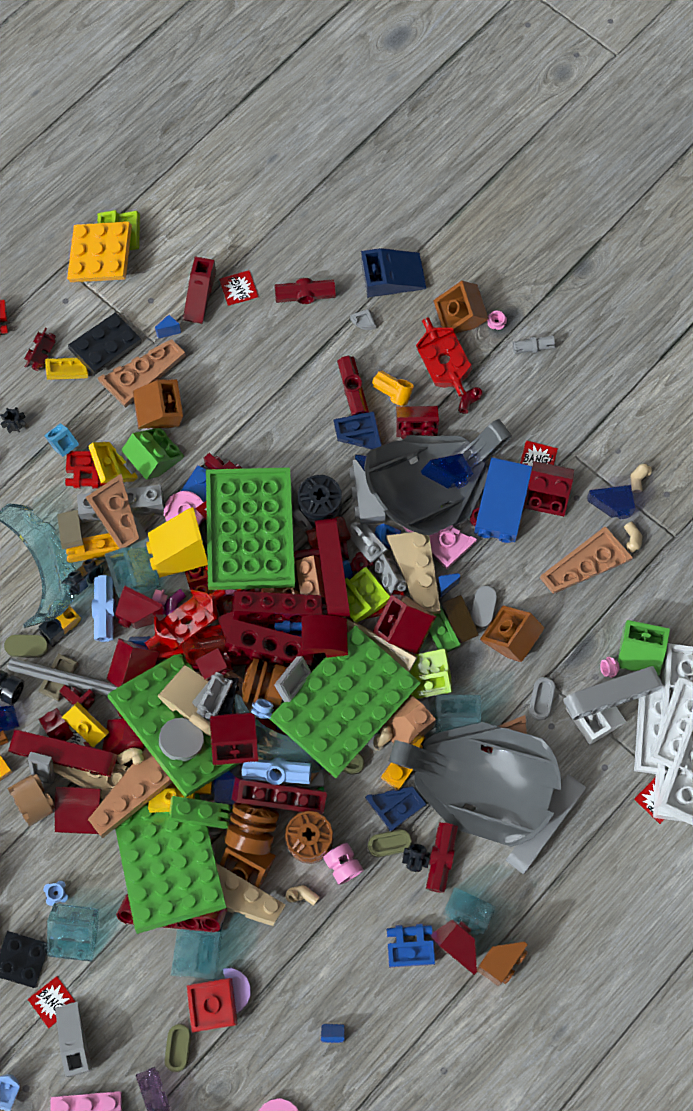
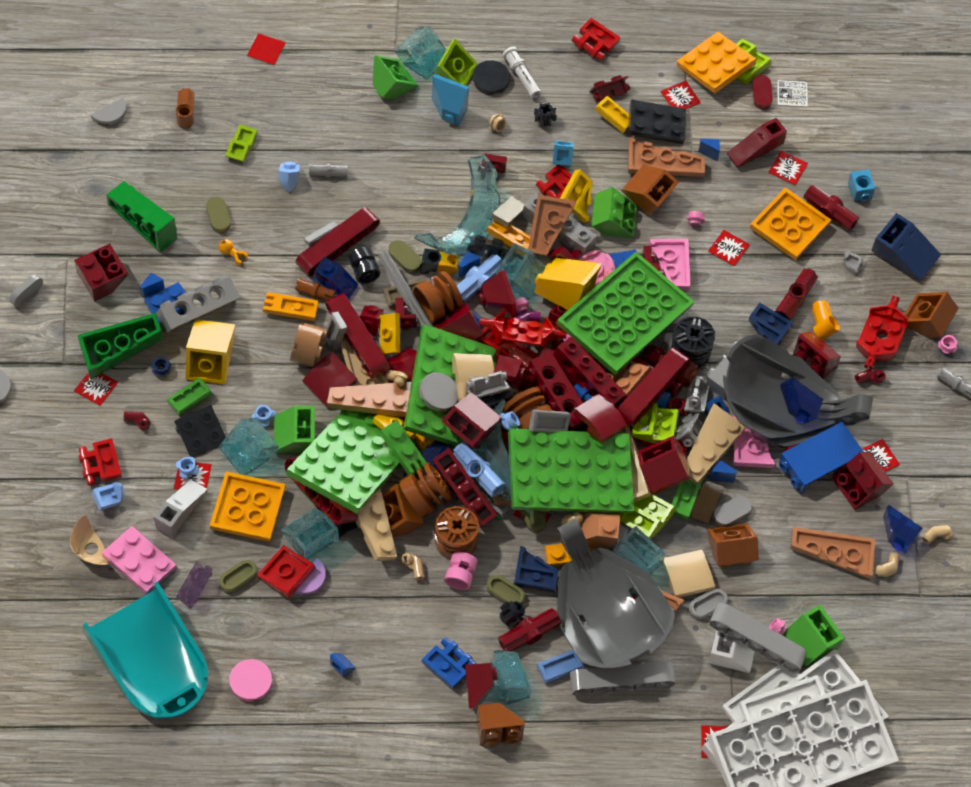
camera: 40 degrees right, 10 degrees down
(18, 496) = (498, 162): none -> dark red bracket
(35, 1001) = (183, 463): none -> light blue plate
(83, 603) = (468, 261): none -> blue slope
(92, 652) = (438, 296): none -> dark orange wheel
(95, 881) = (294, 429): none -> bright green slope
(98, 305) = (680, 95): none -> sticker
(124, 983) = (247, 506): none -> light orange plate
(155, 520) = (564, 253): none -> dark red bracket
(157, 244) = (762, 92): none -> dark red tile
(179, 223) = (792, 93): none -> sticker
(215, 396) = (696, 218): none -> bright pink plate
(234, 445) = (673, 260): none -> bright pink wing
(262, 395) = (728, 247): none -> sticker
(288, 332) = (790, 223): none -> light orange plate
(300, 539) = (652, 354): none -> dark red plate
(306, 245) = (863, 179): none -> dark azure brick
(490, 862) = (559, 666): none -> medium blue tile
(505, 689) = (688, 574): none -> tan slope

